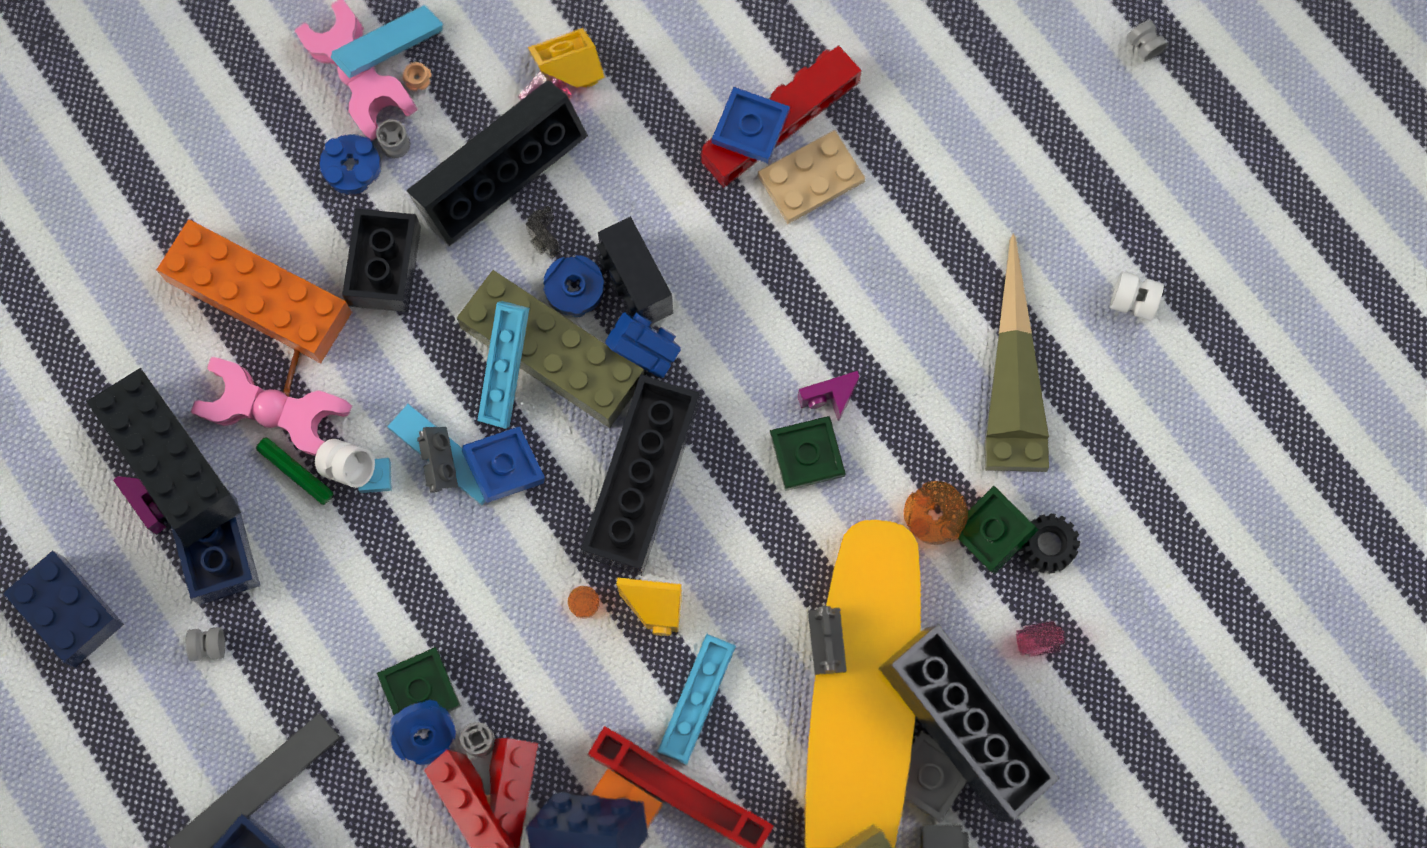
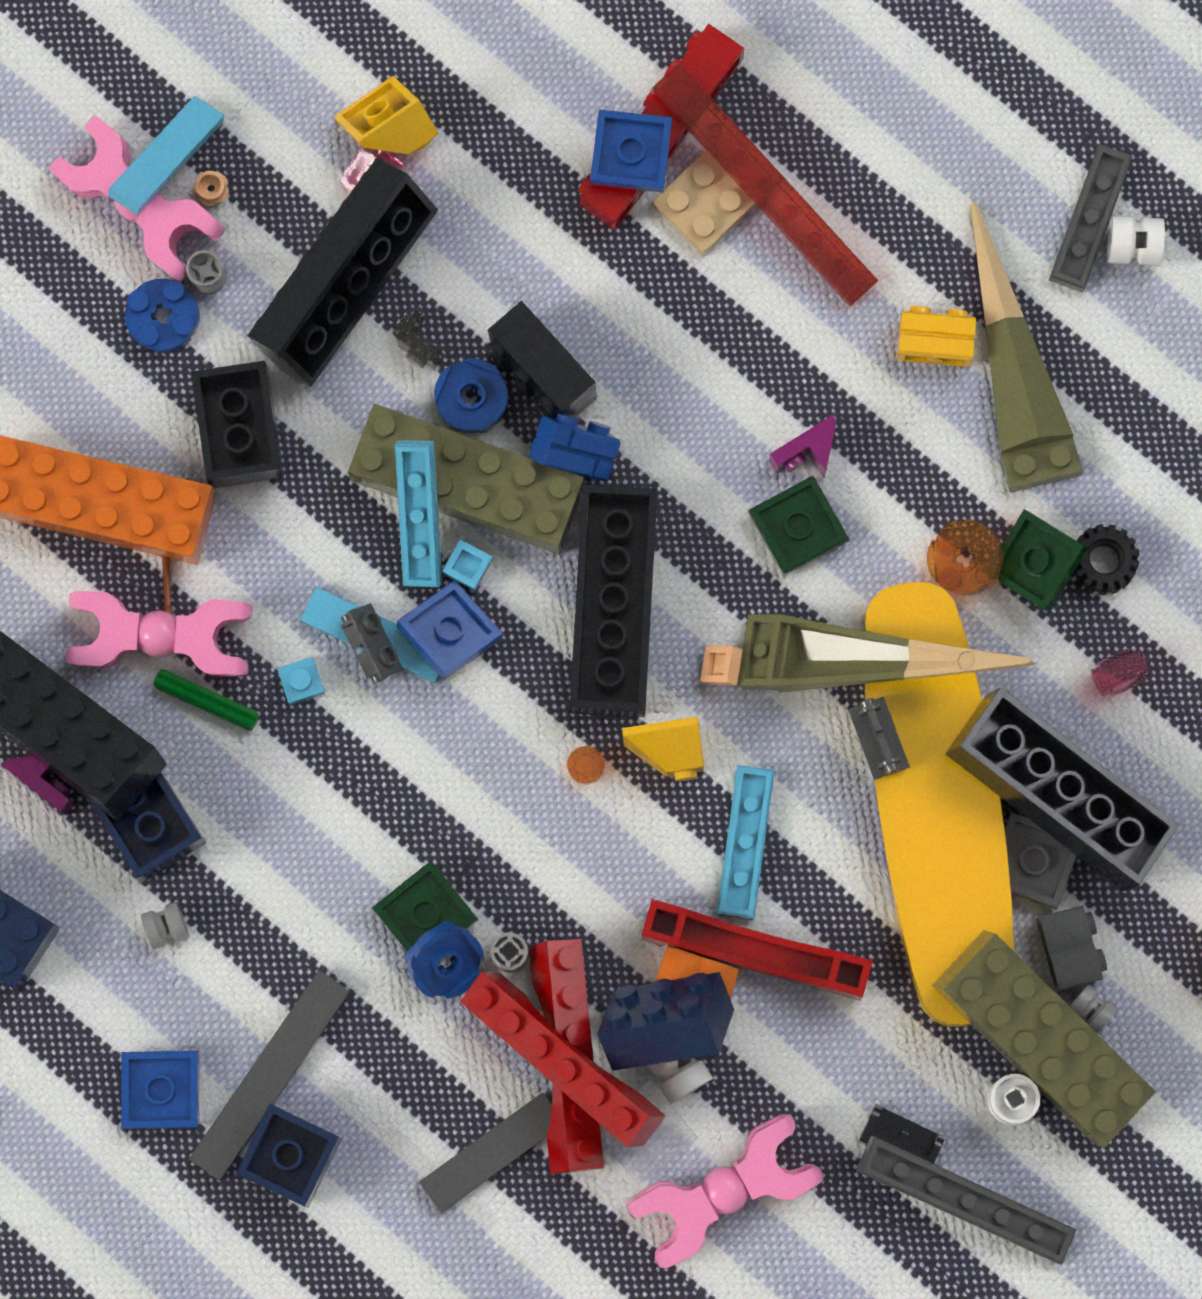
camera: 10 degrees left, 5 degrees up
(161, 778) = (159, 1089): none -> blue plate
(345, 463) = (266, 676): white wheel -> none
(533, 417) = (467, 565): none -> medium azure plate
(715, 549) = (721, 665): none -> light nougat plate
(788, 559) = (807, 654): none -> olive plate
(850, 179) = (764, 184): none -> clear red tile
(957, 332) = (936, 337): none -> yellow brick
(1104, 270) = (1090, 218): none -> dark grey tile

